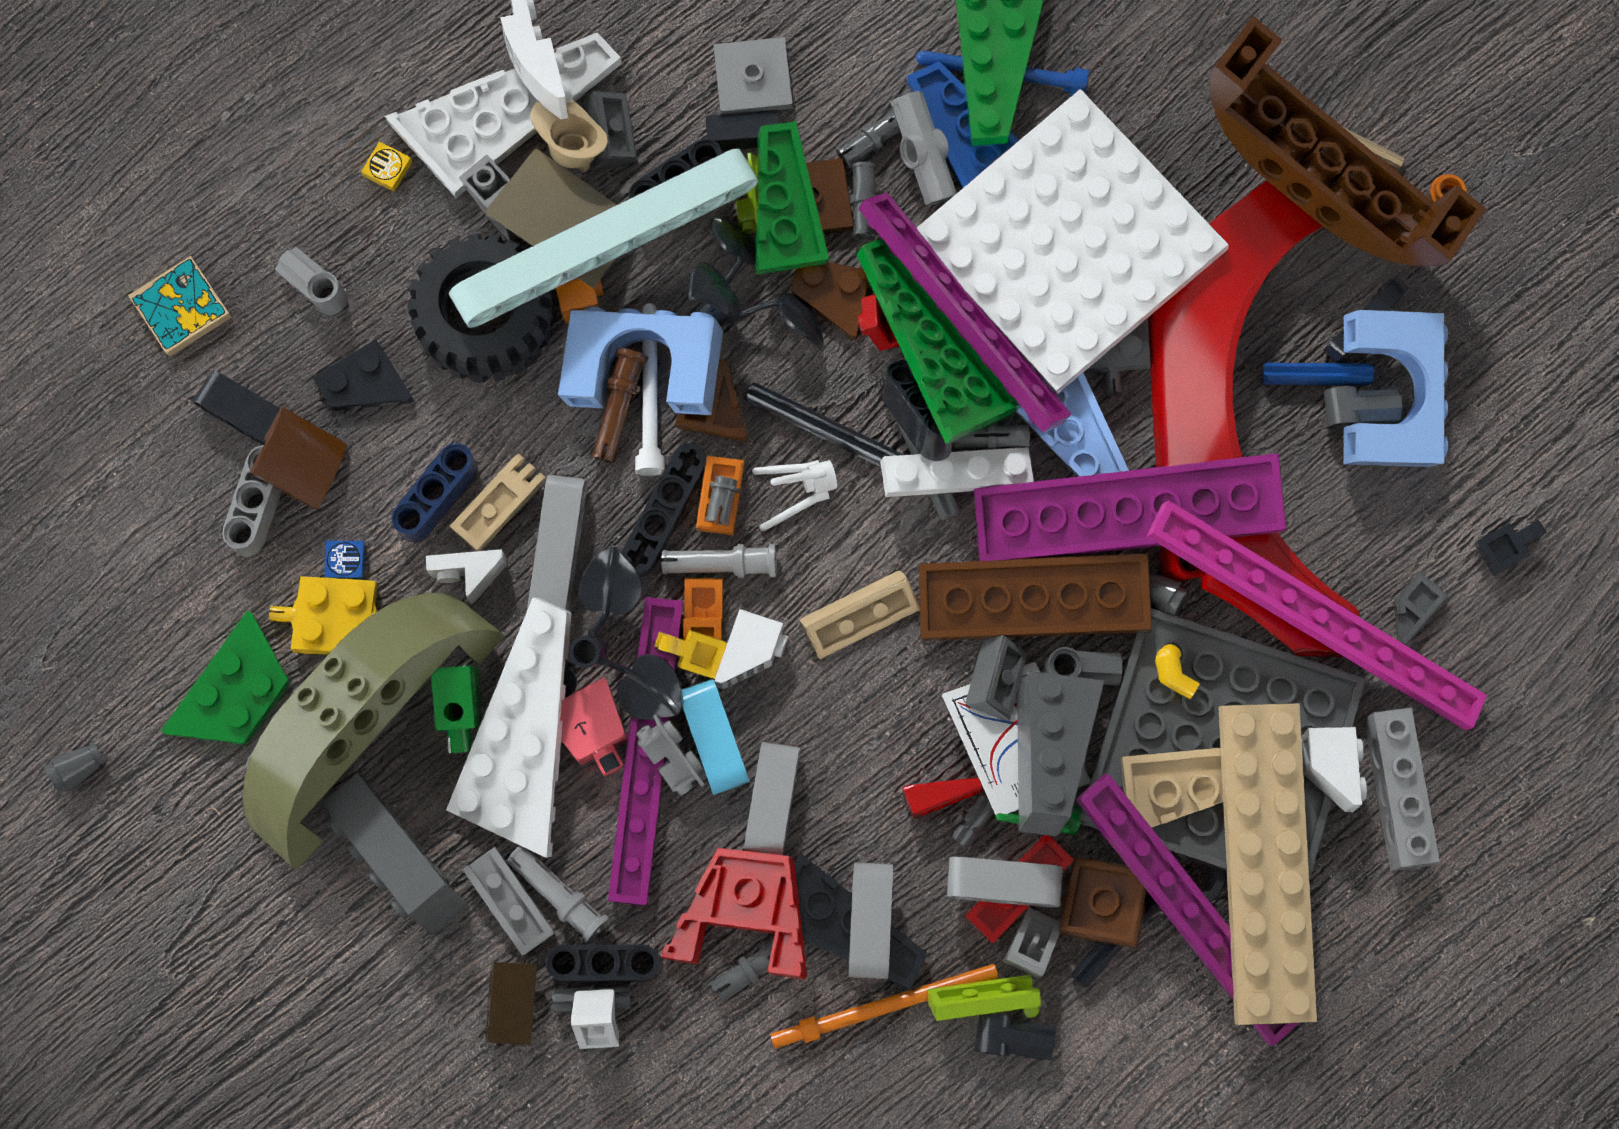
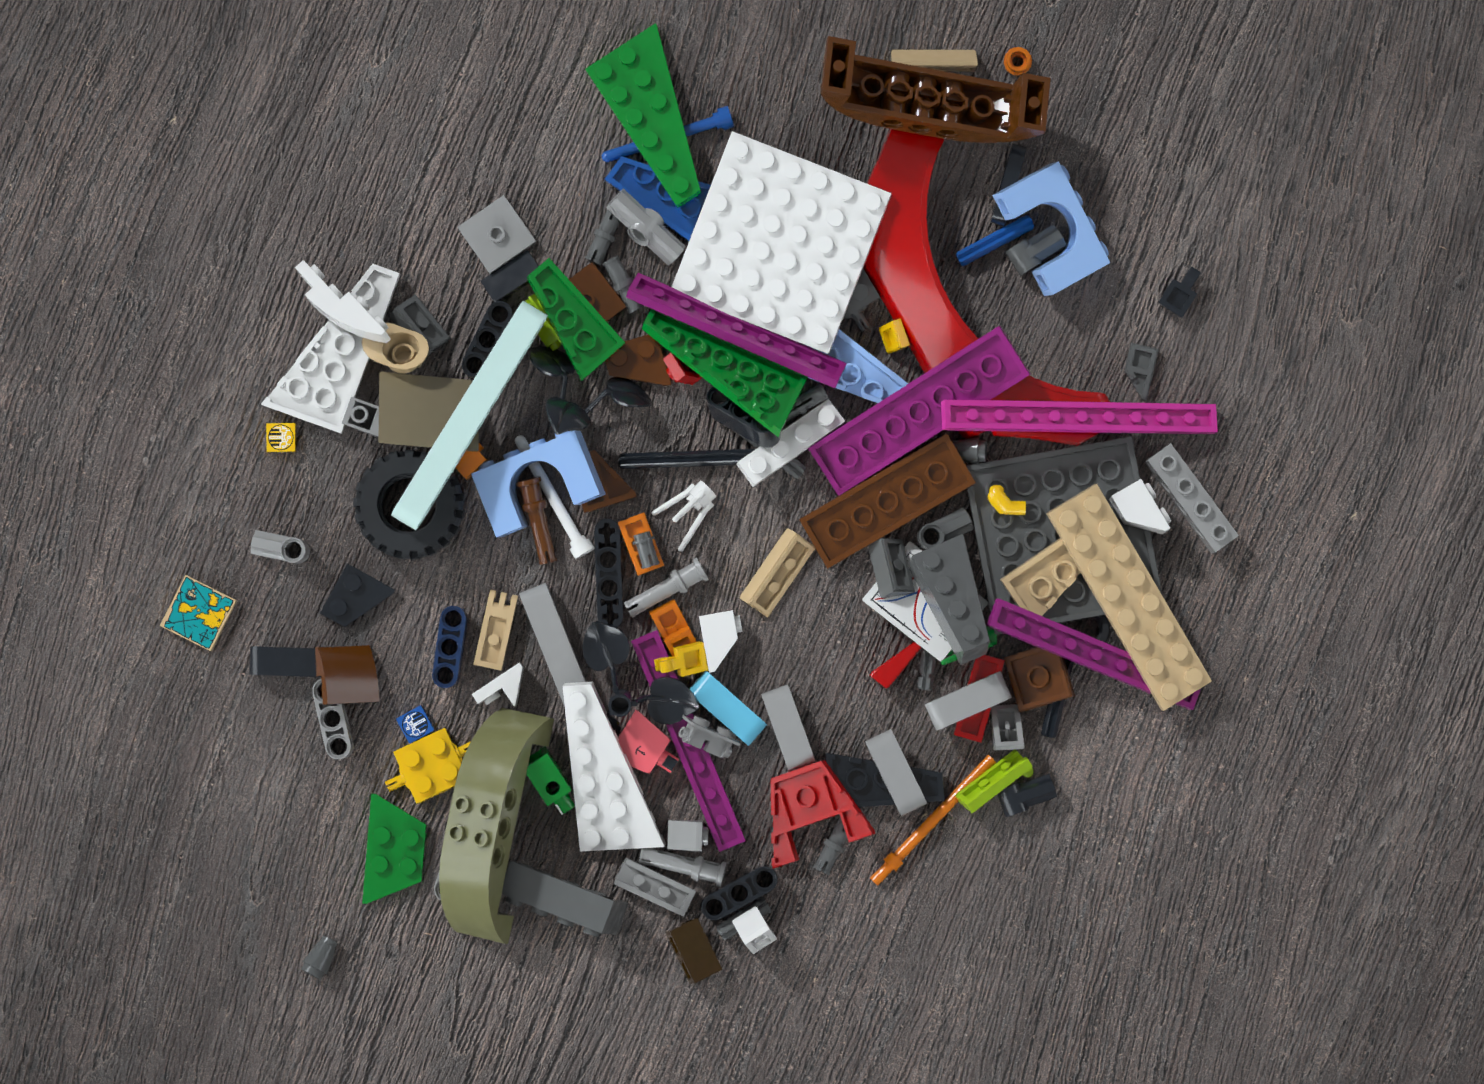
camera: 30 degrees left, 10 degrees up
(581, 858) = (687, 835): none -> light grey slope
(1143, 417) = (894, 336): none -> yellow tile

